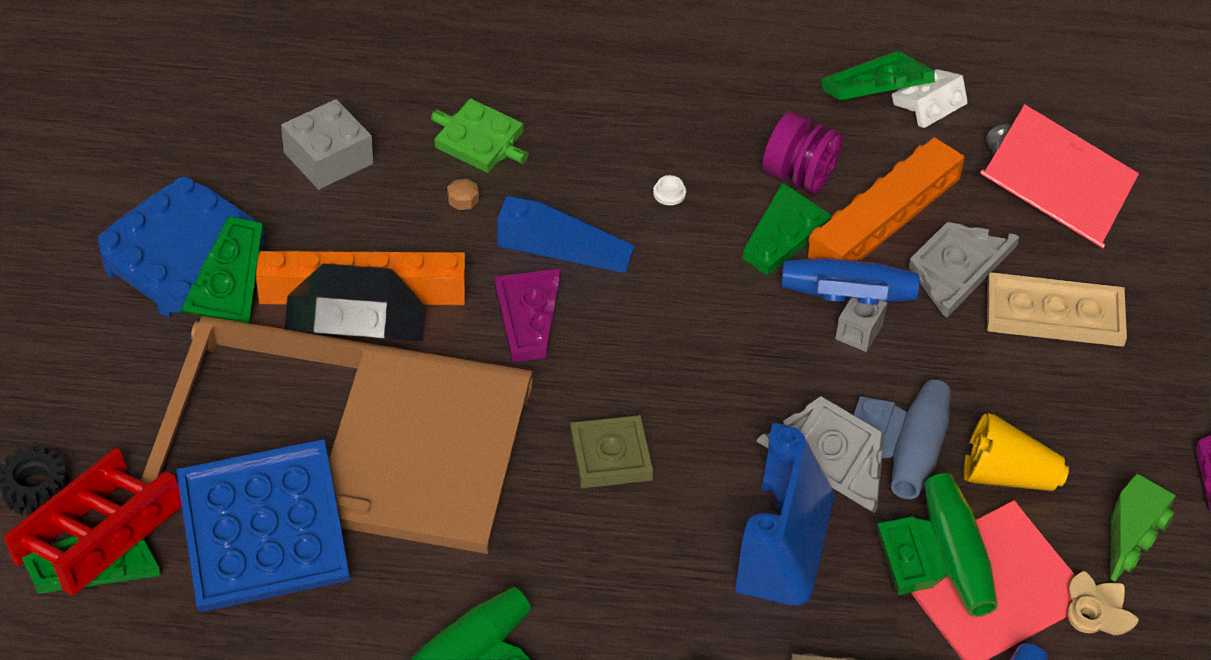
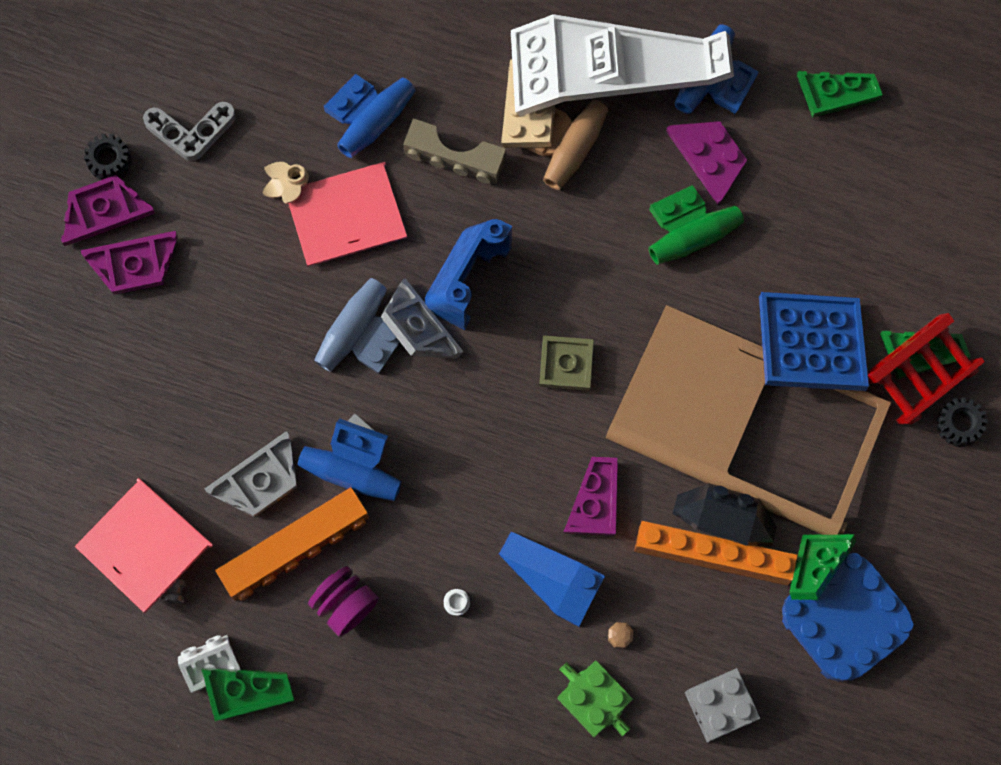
camera: 165 degrees left, 25 degrees up
(783, 230) = (378, 544): green wing -> none
(946, 545) = (371, 227): green plate -> none
(1011, 458) = (300, 290): yellow cone -> none
(1056, 309) = (205, 419): tan plate -> none
(1134, 522) = (234, 230): bright green slope -> none

